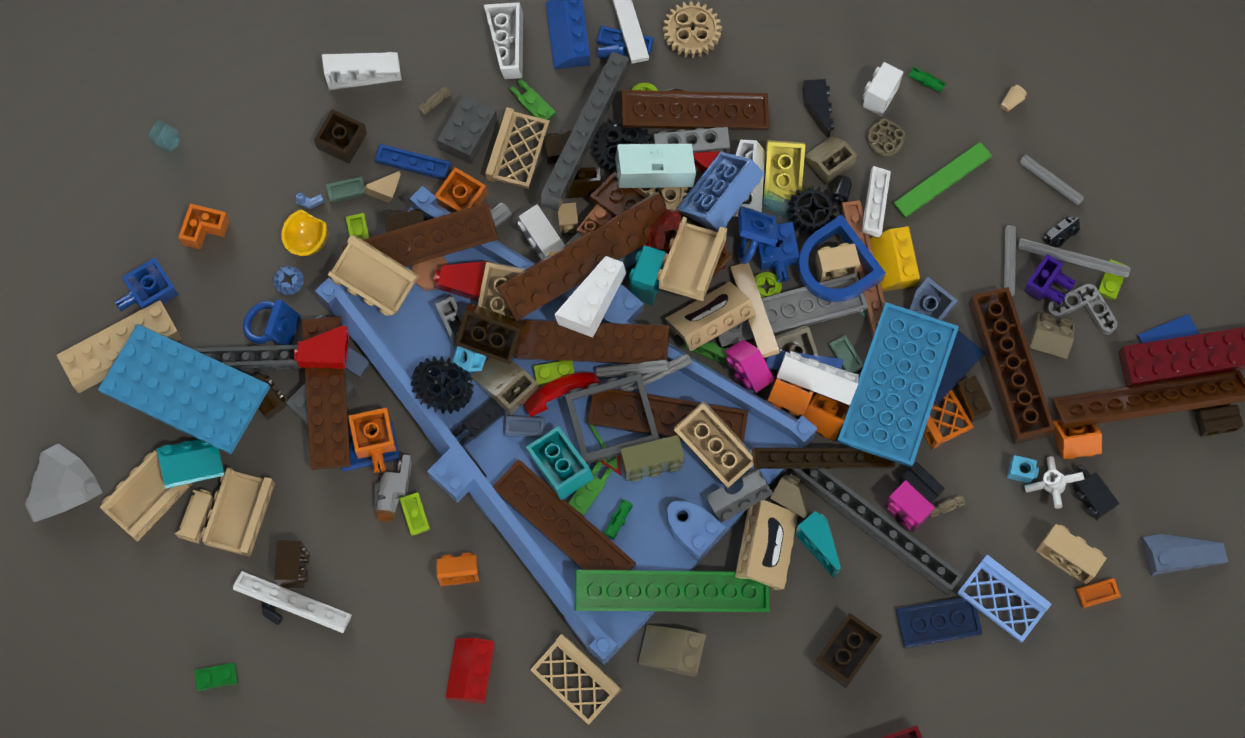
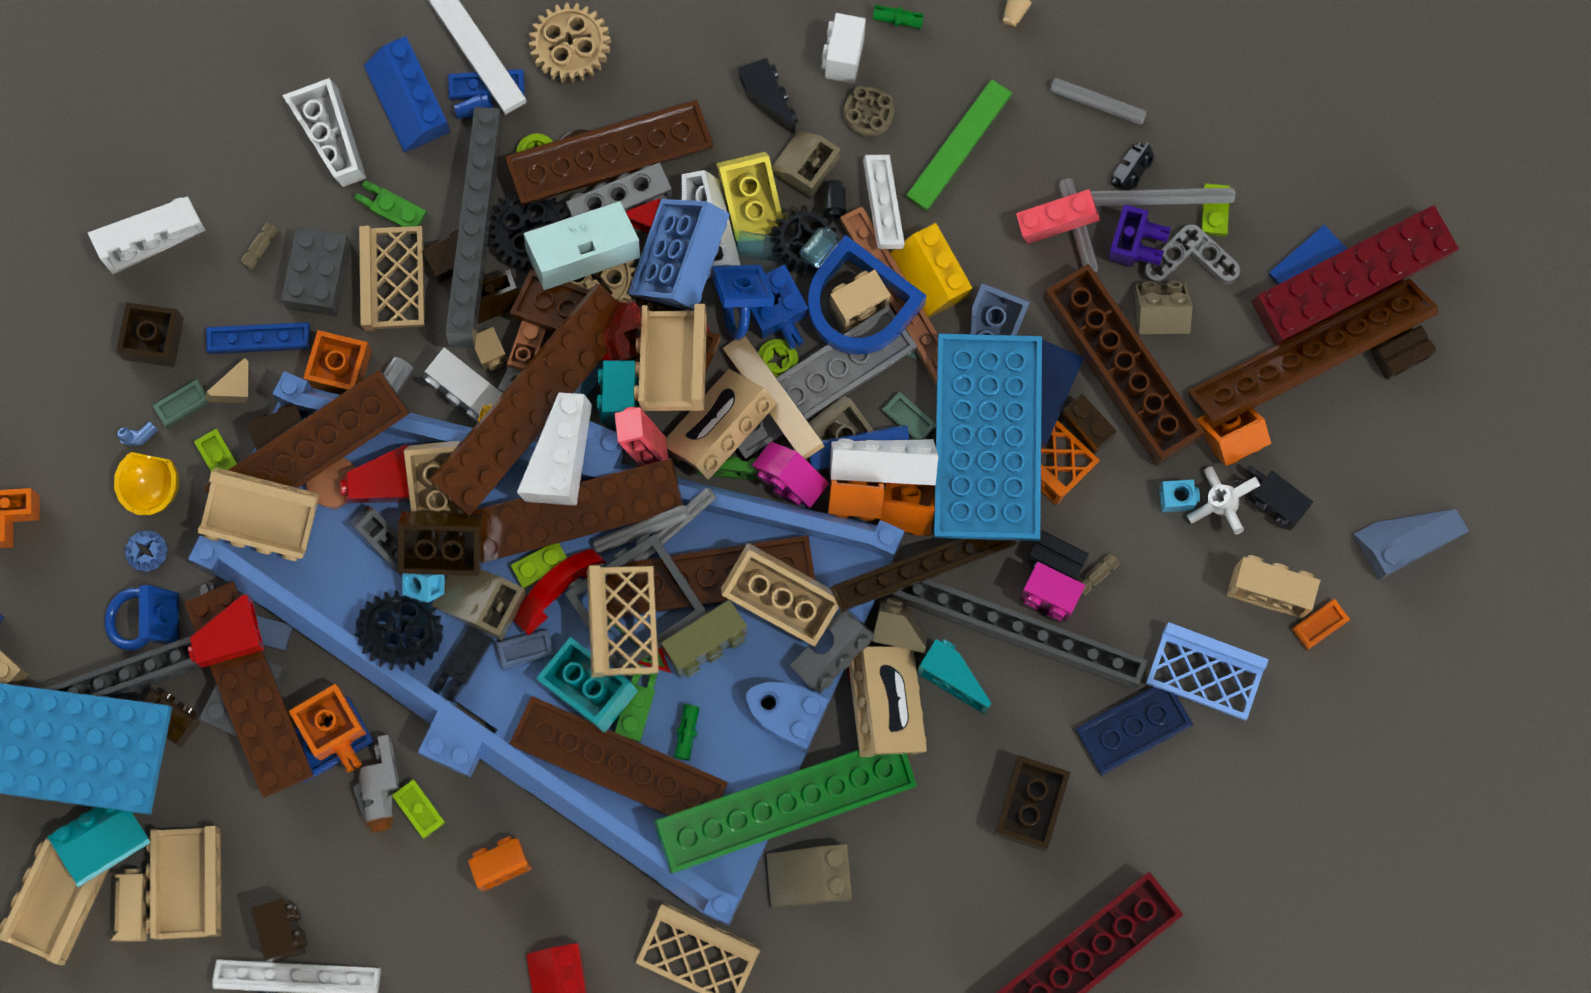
camera: 20 degrees left, 5 degrees up
(581, 420) = (598, 621): none -> tan fence
(652, 304) = (640, 436): none -> coral brick
(820, 217) = (819, 247): none -> clear light blue brick
(997, 248) = (1058, 216): none -> coral brick

